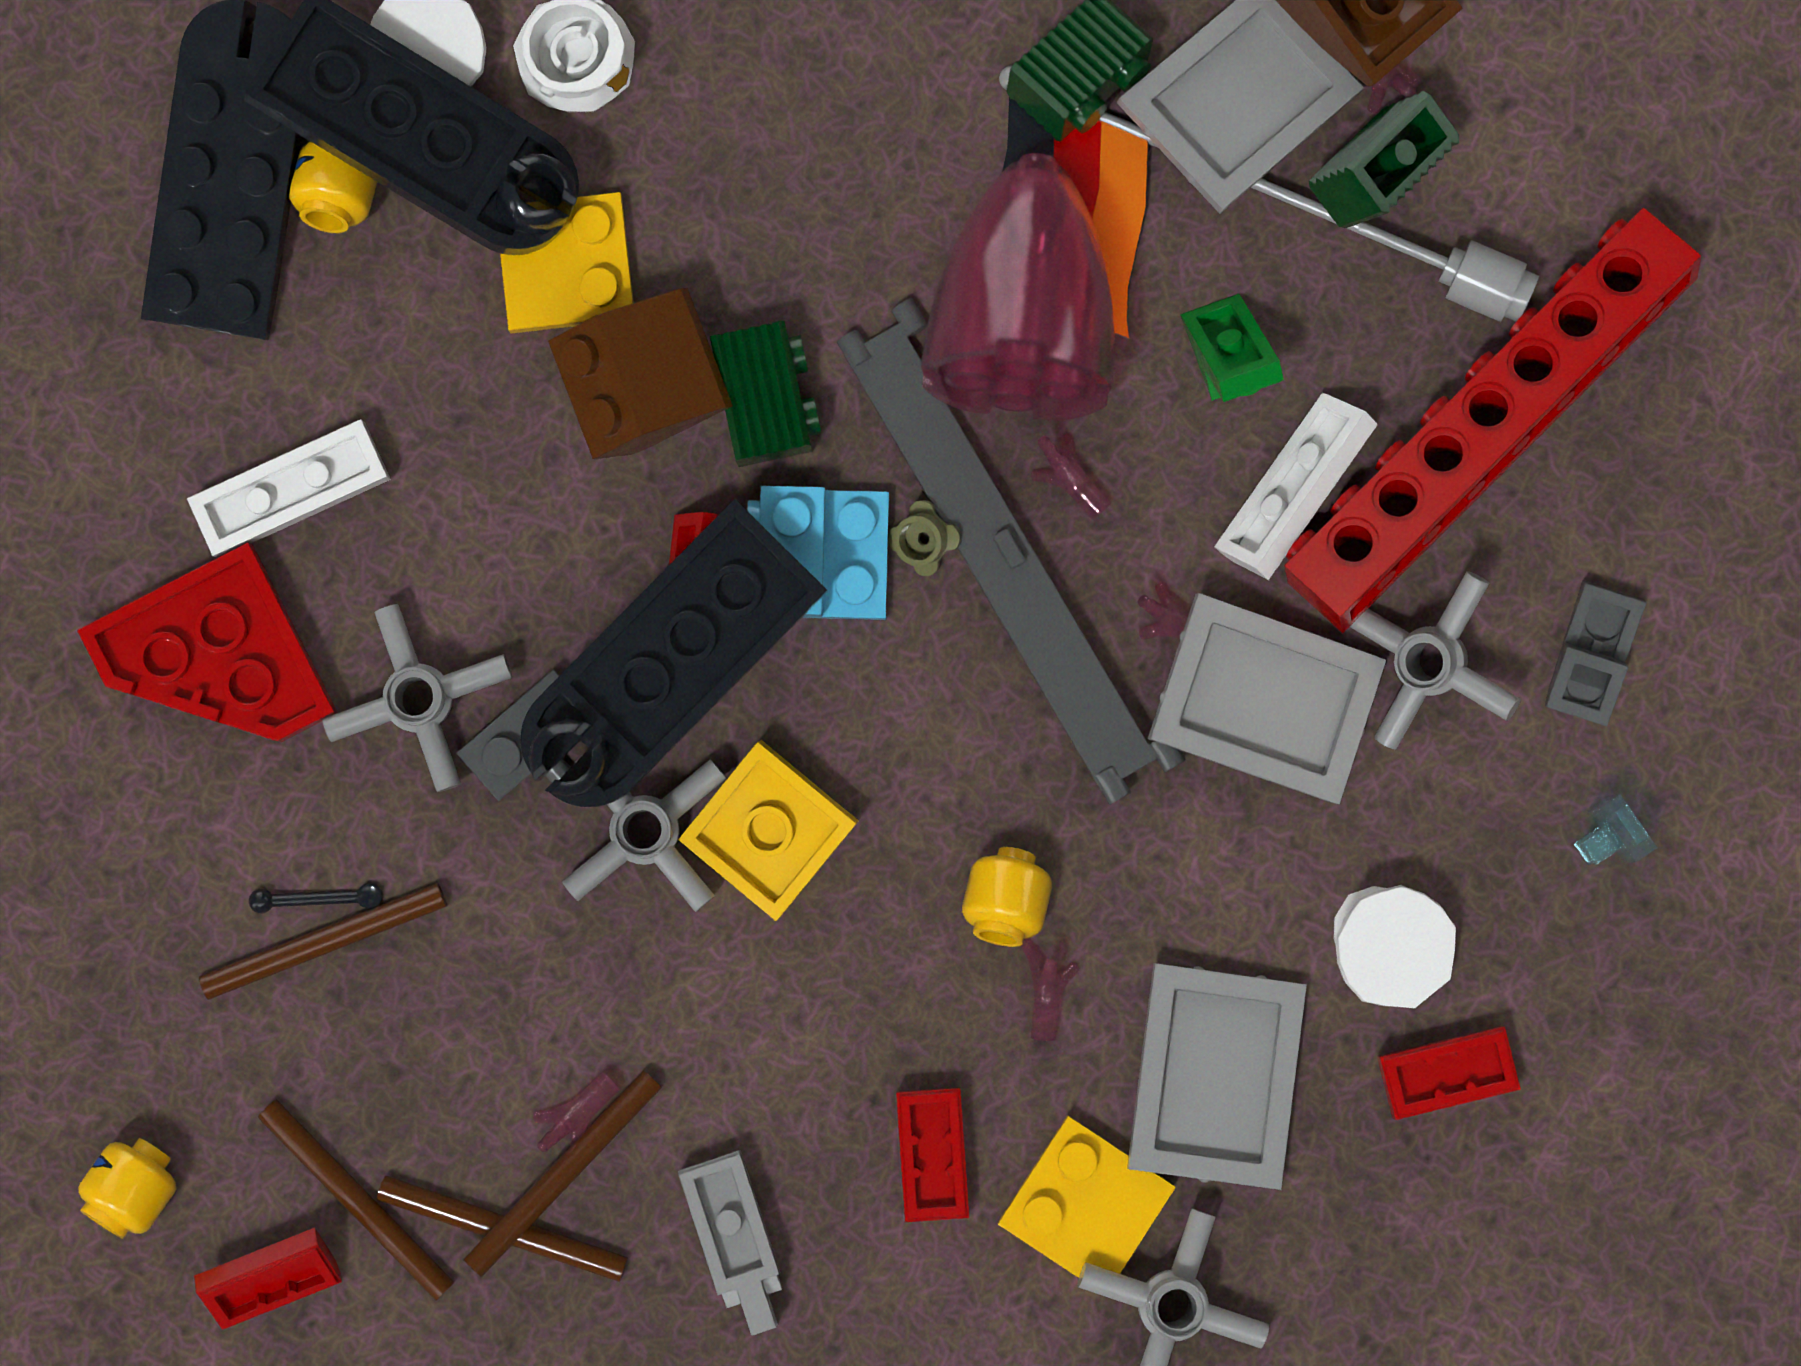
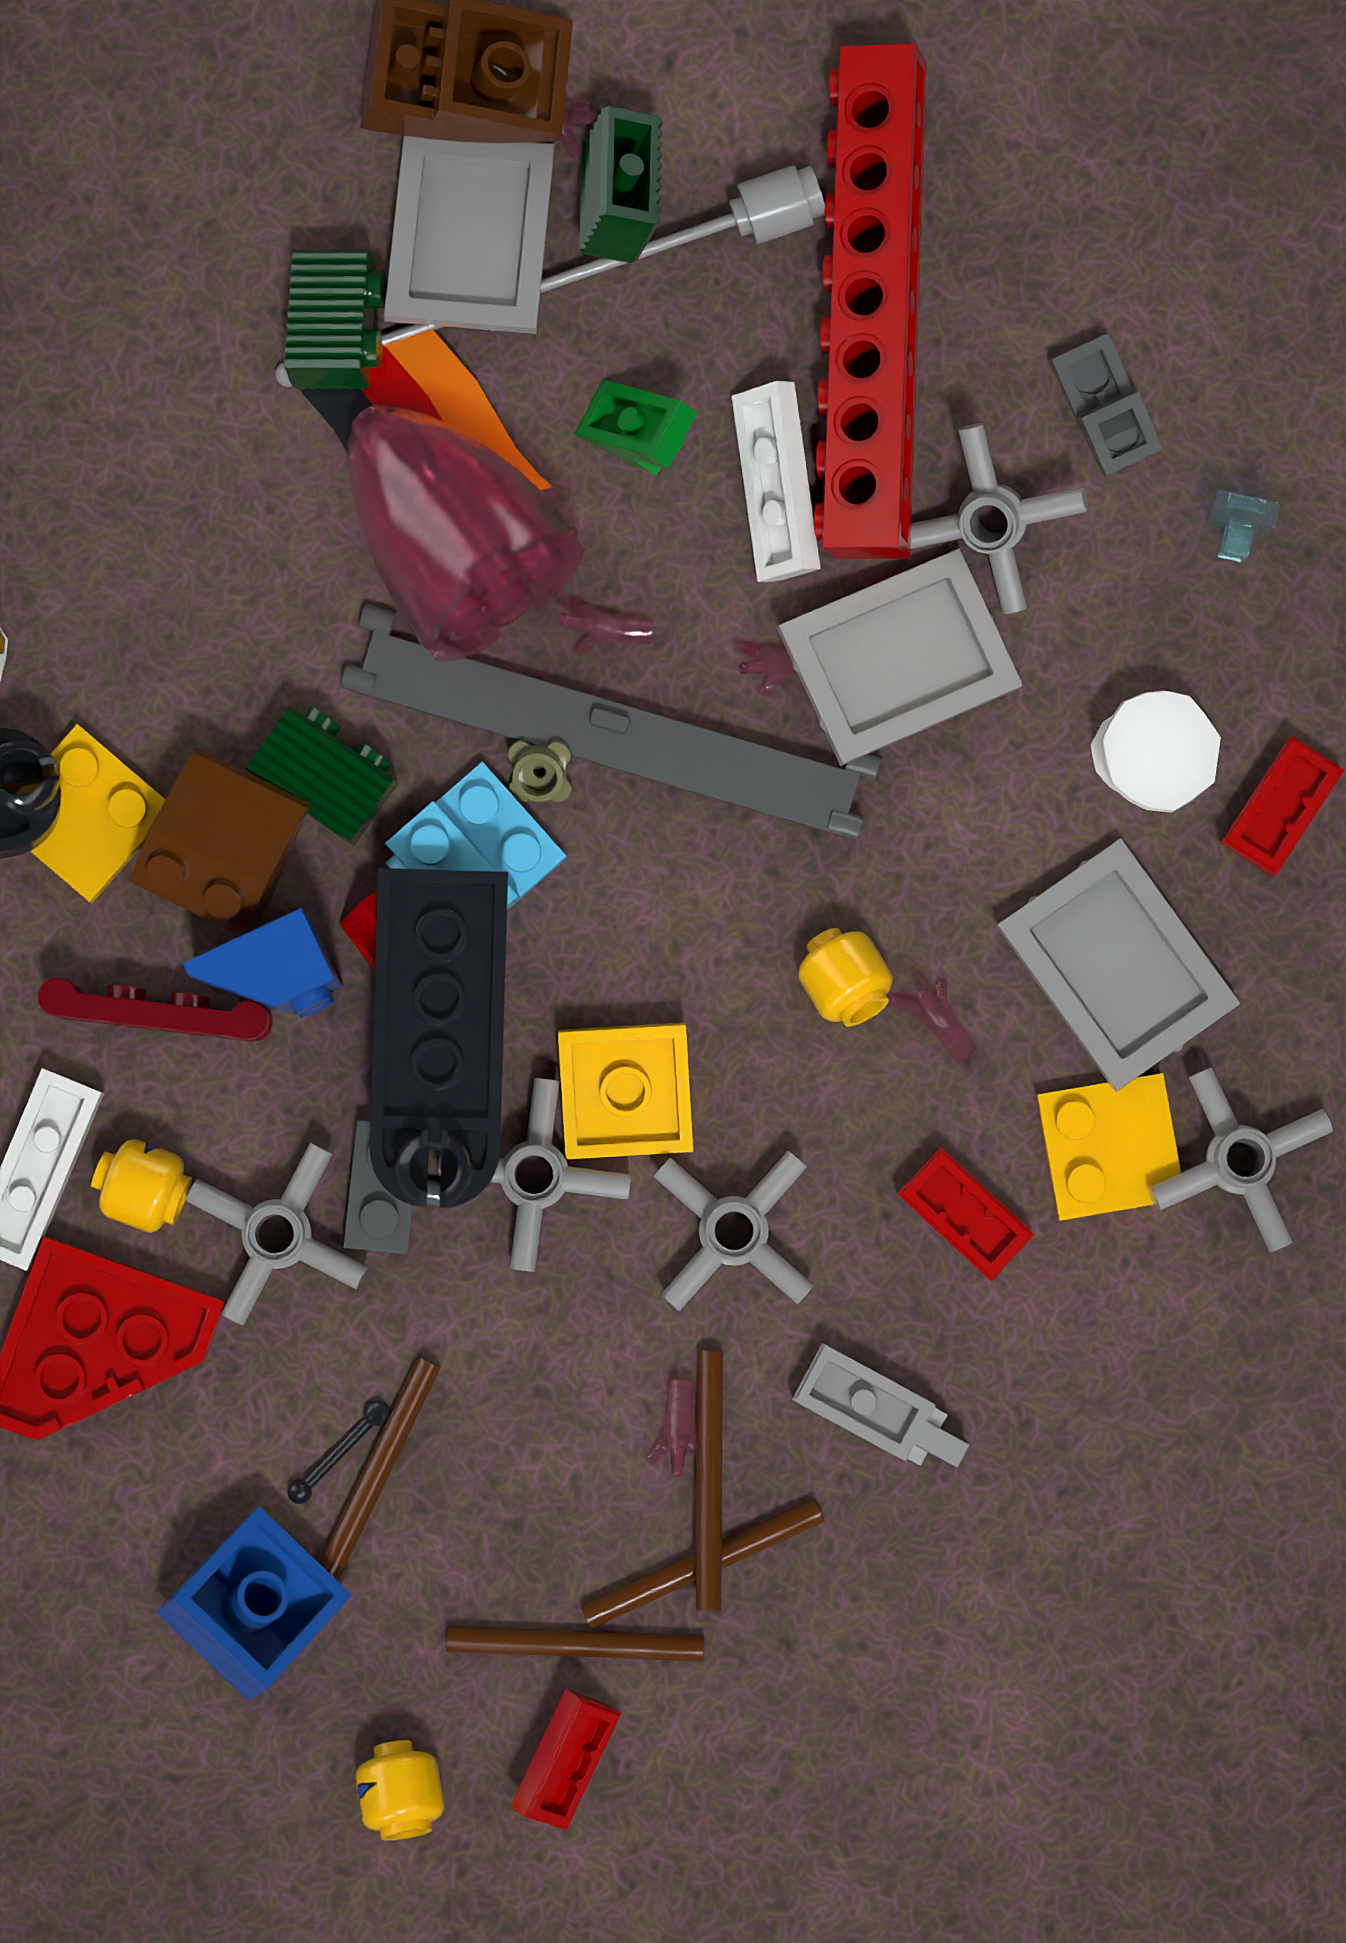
camera: 50 degrees left, 0 degrees up
(149, 952) = (254, 1604): none -> blue slope
(352, 571) = (141, 1185): none -> yellow head
(464, 434) = (128, 1008): none -> dark red plate
(594, 501) = (273, 966): none -> blue slope
(721, 1009) = (713, 1253): none -> light grey bar

